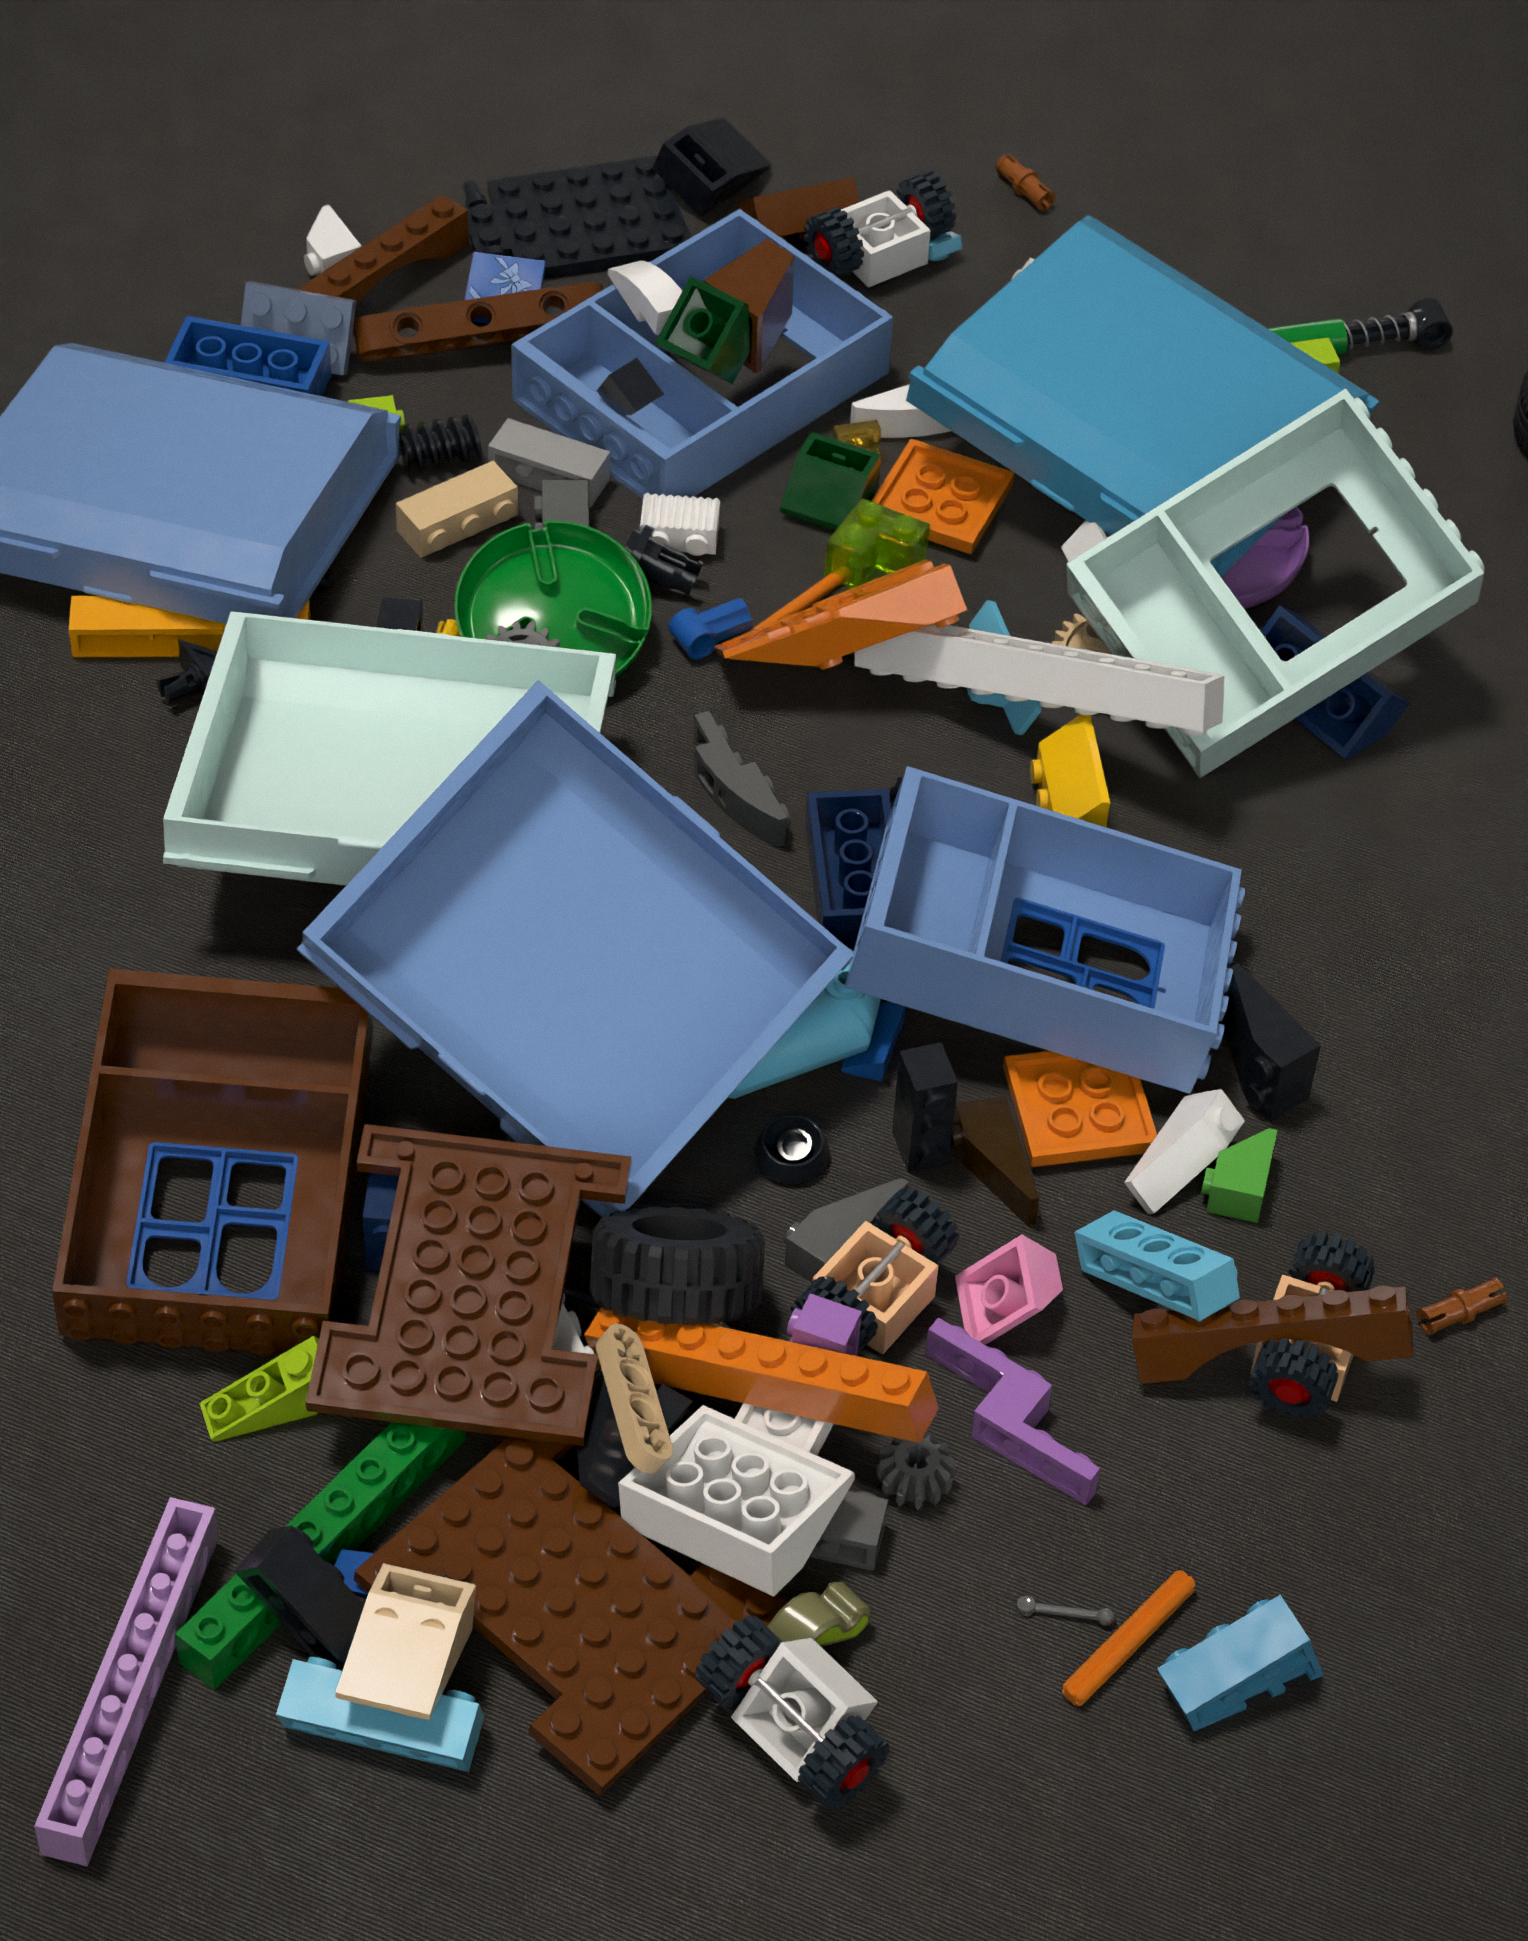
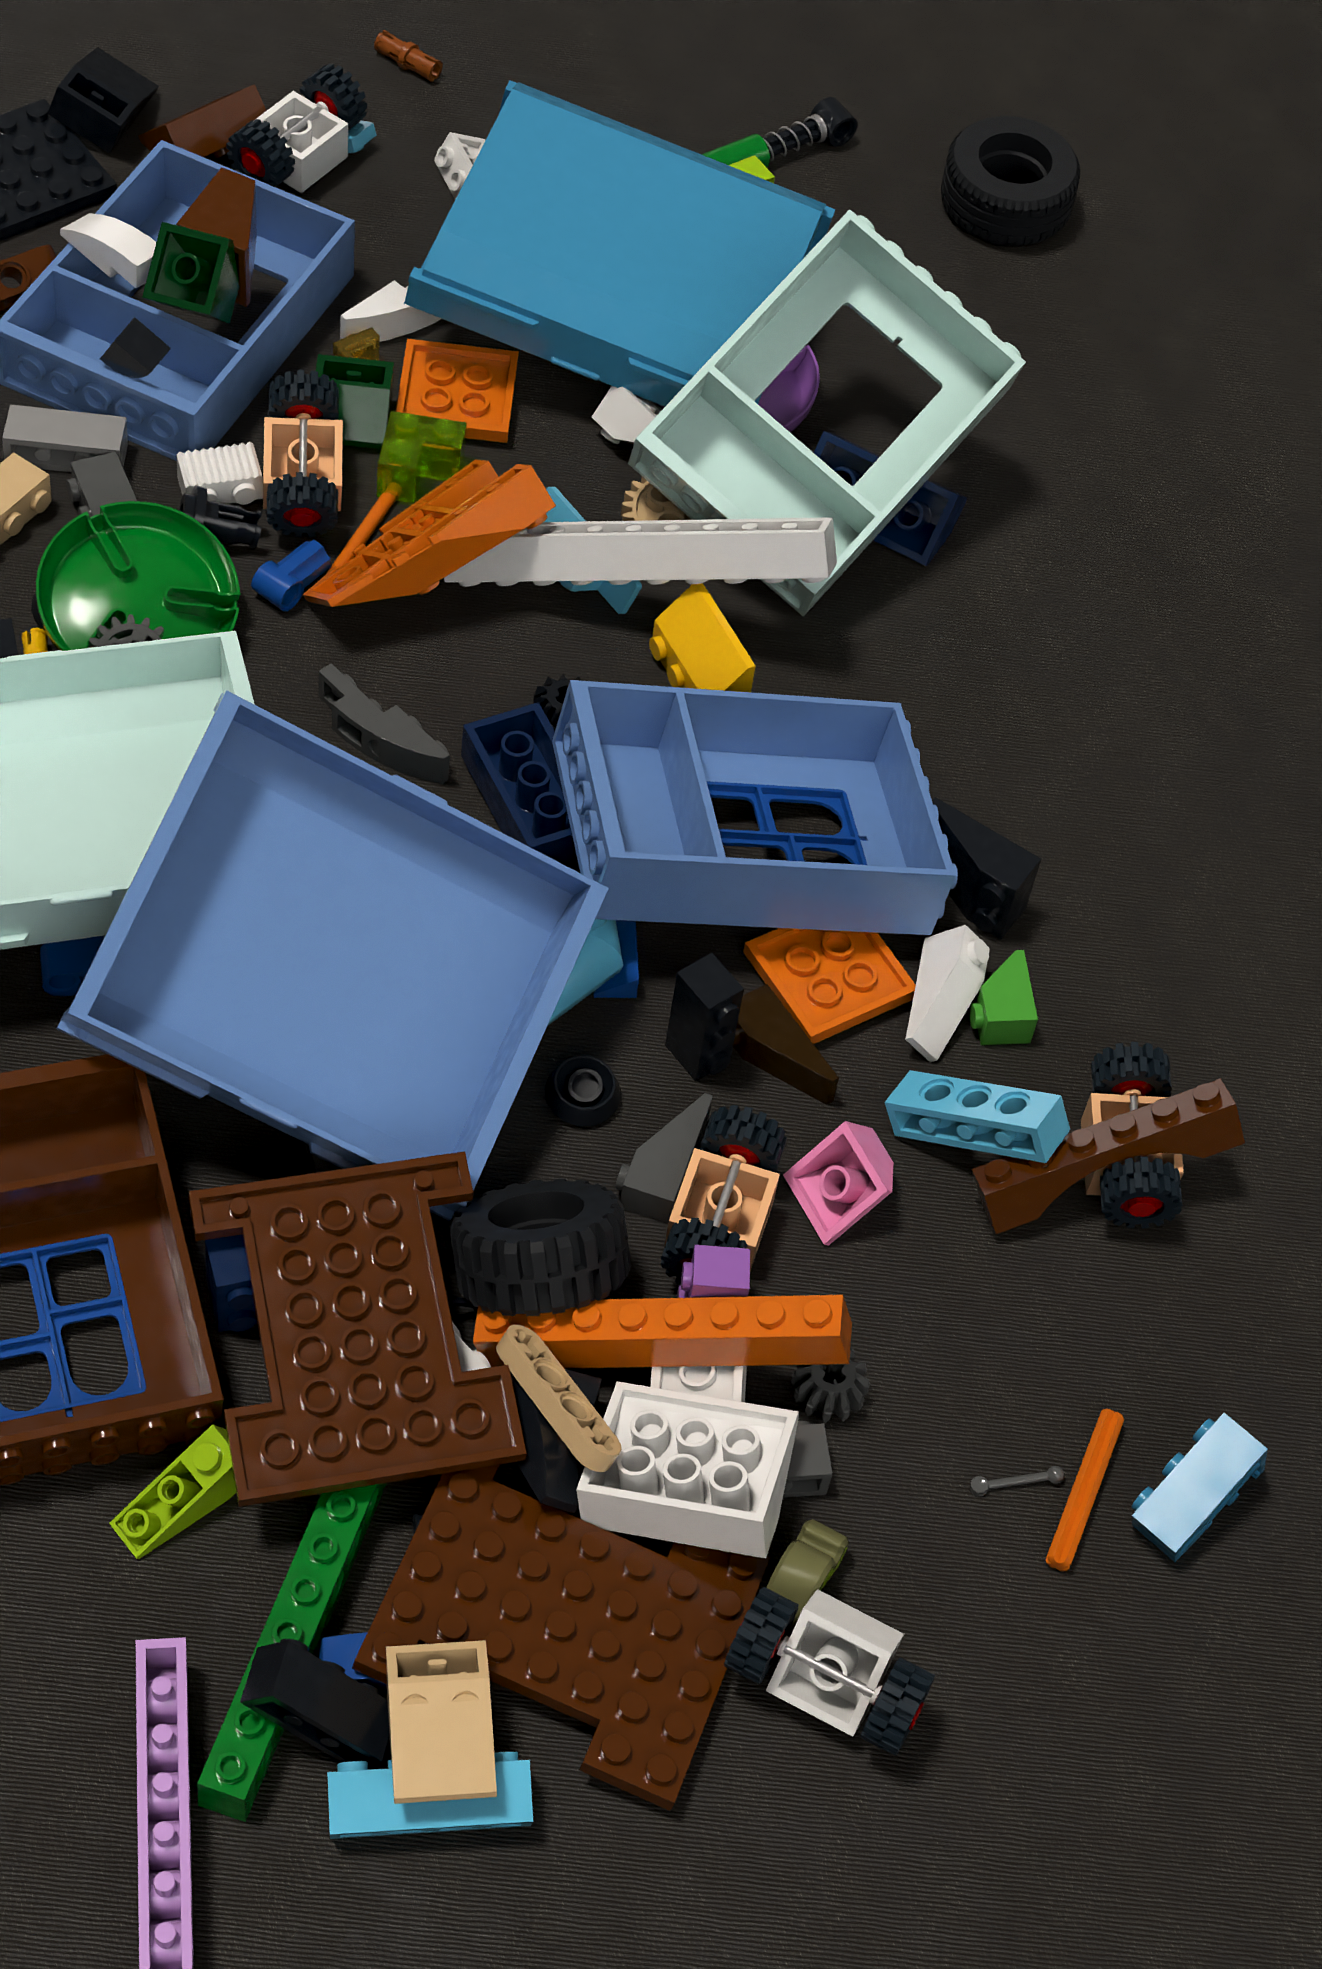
camera: 25 degrees left, 5 degrees up
(760, 519) = (303, 454): none -> brick
(1012, 1410) = (893, 1295): medium lavender bracket -> none
(1461, 1306) = (1245, 1072): dark orange pin -> none

